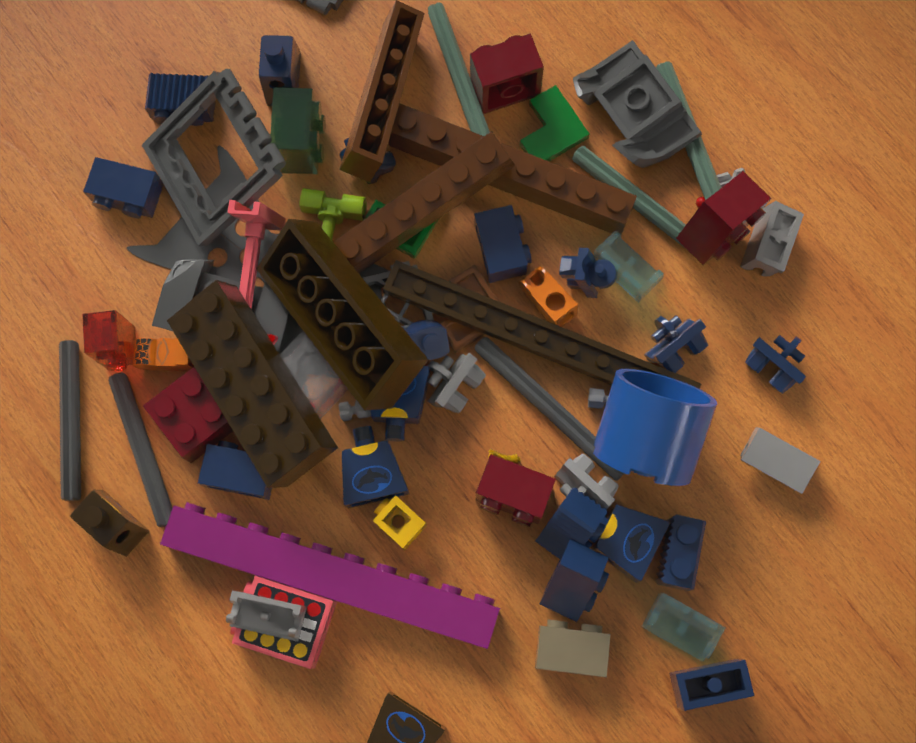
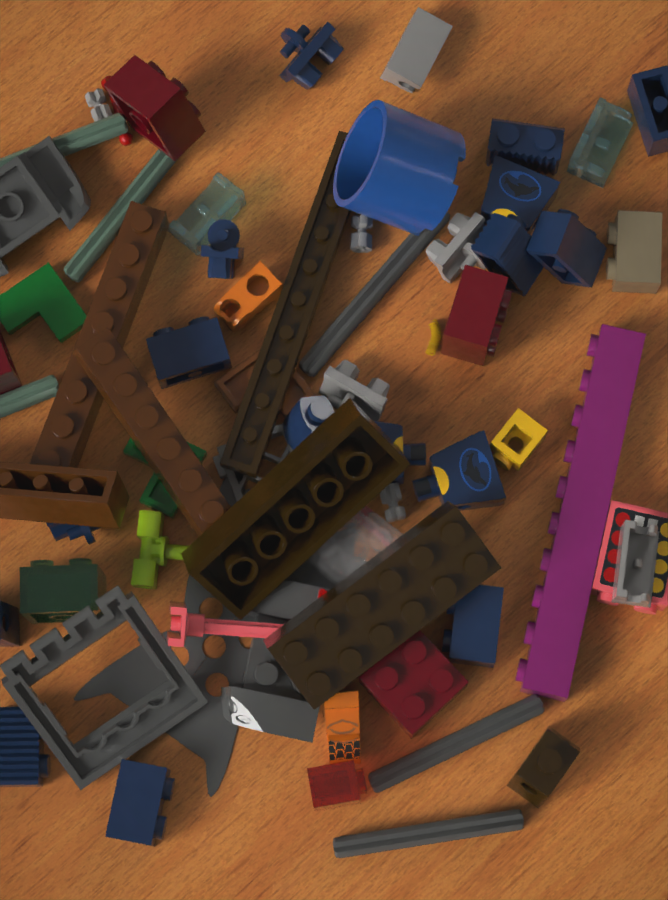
camera: 95 degrees left, 0 degrees up
(686, 335) = (290, 161): dark blue hips -> none
(772, 239) = (175, 57): light grey hinge -> none

